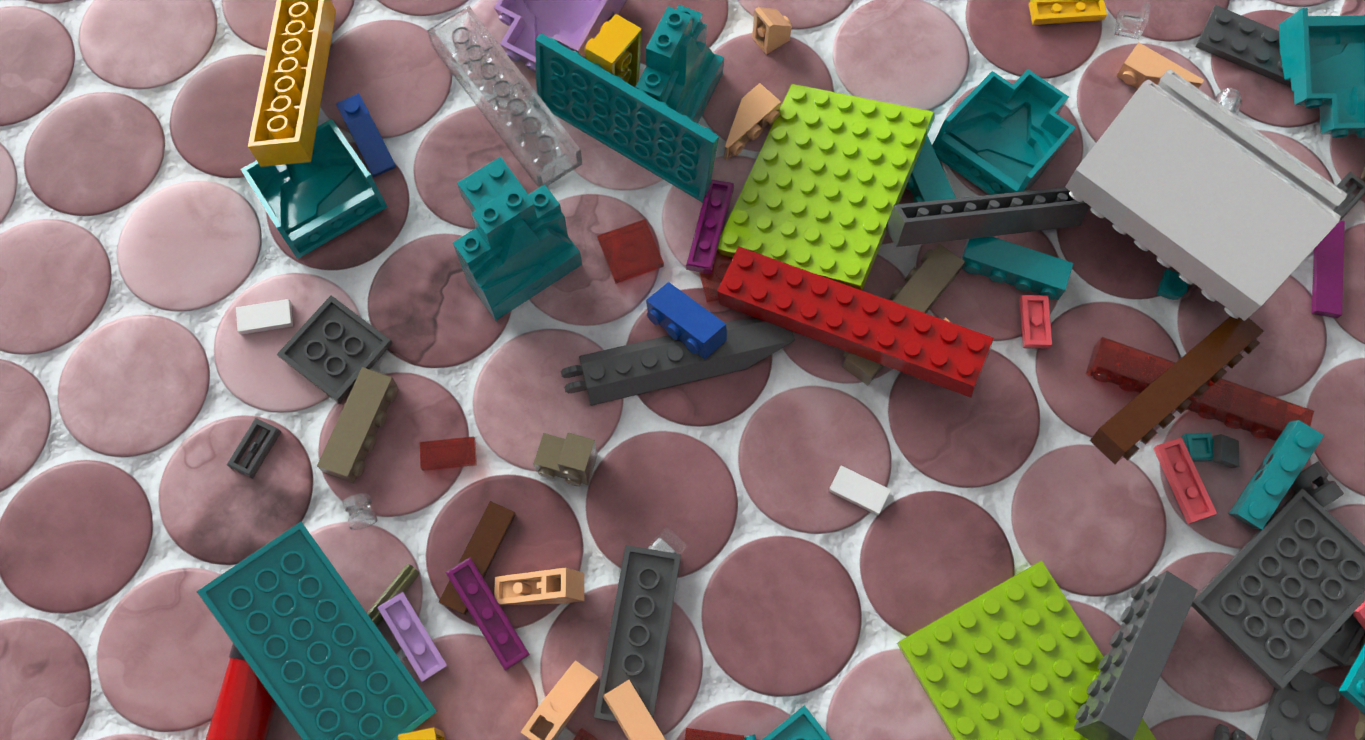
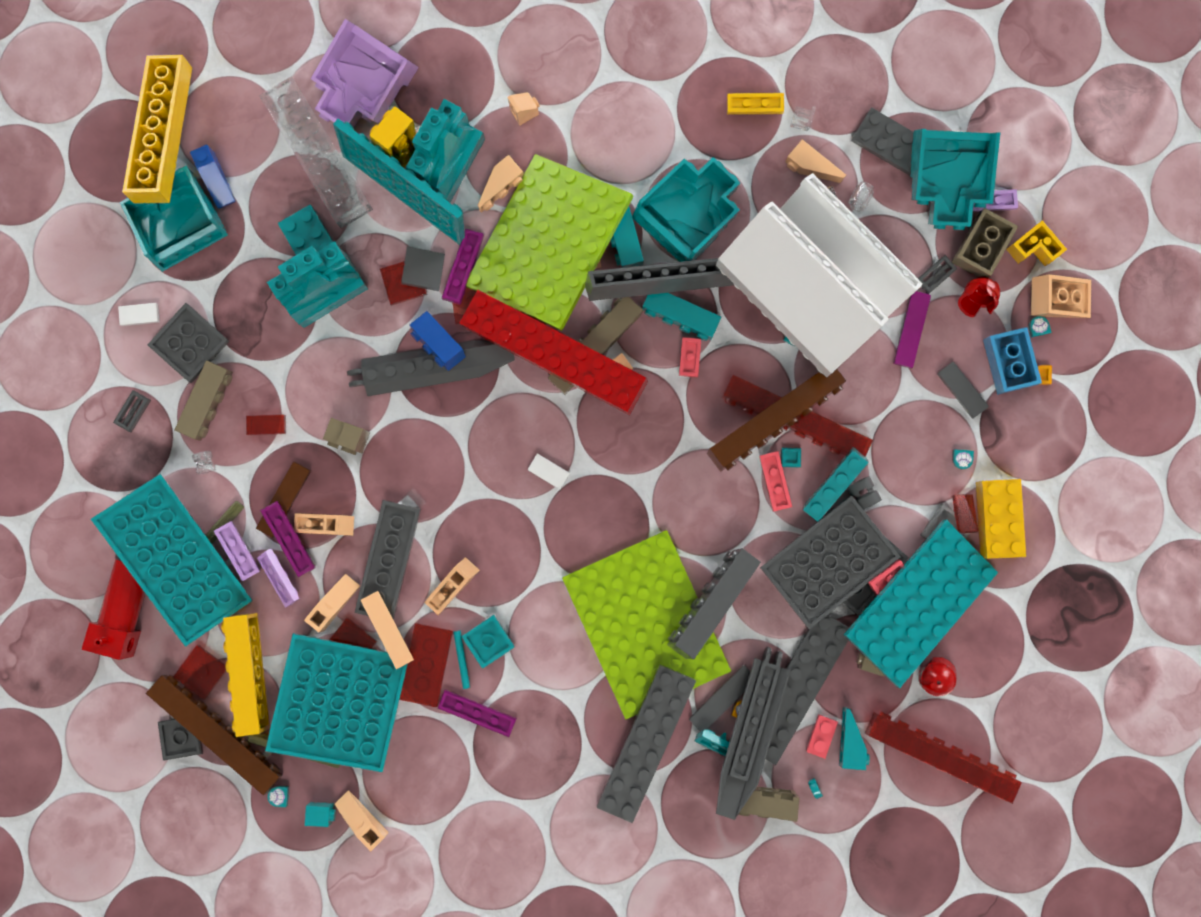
camera: 10 degrees right, 15 degrees up
(475, 673) = (278, 578): none -> lavender plate
(656, 231) = (422, 268): none -> dark grey tile
(736, 667) = (451, 585): none -> light nougat slope
(1226, 451) = (808, 462): dark grey tile -> none

